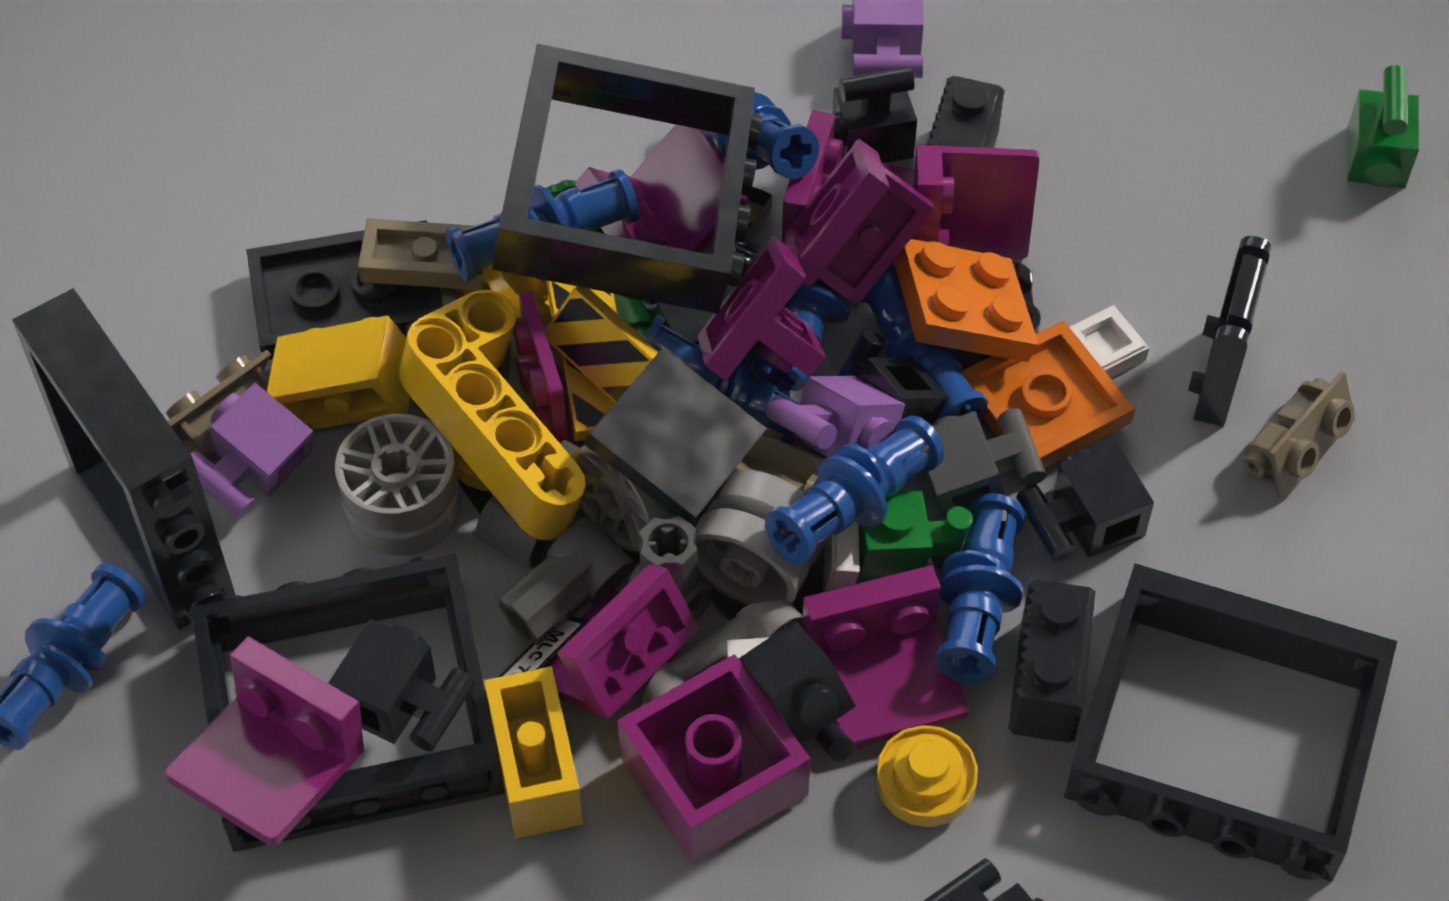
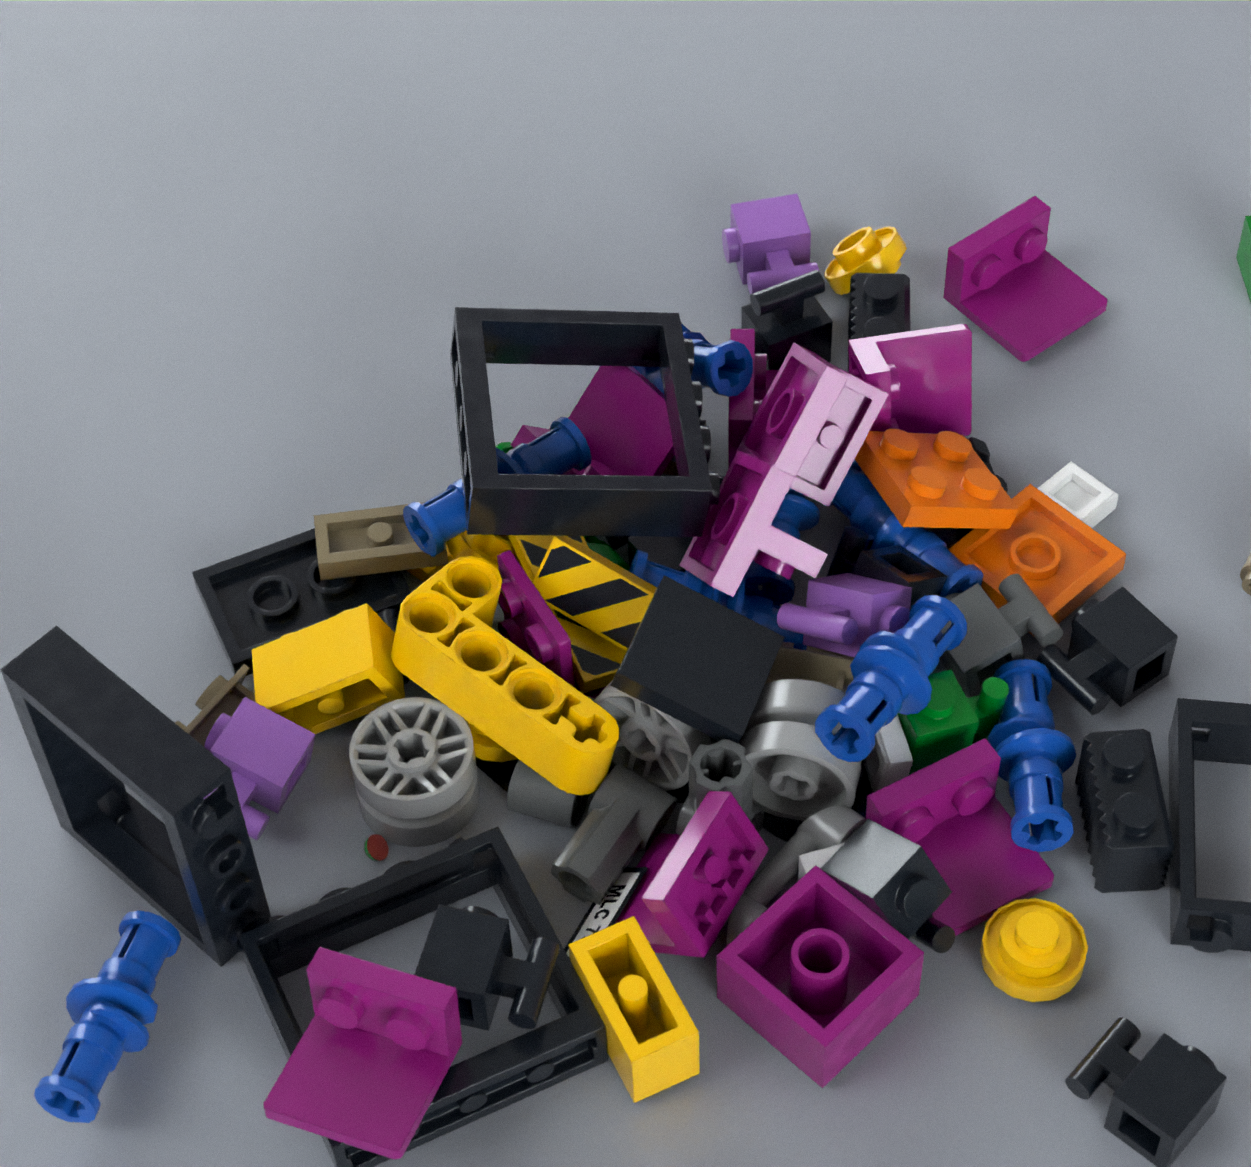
camera: 10 degrees left, 5 degrees down
(348, 548) = (376, 847): none -> coral piece
(973, 57) = (864, 253): none -> yellow plate
(1115, 115) = (1017, 287): none -> magenta bracket
(1231, 332) = (1201, 461): black container -> none

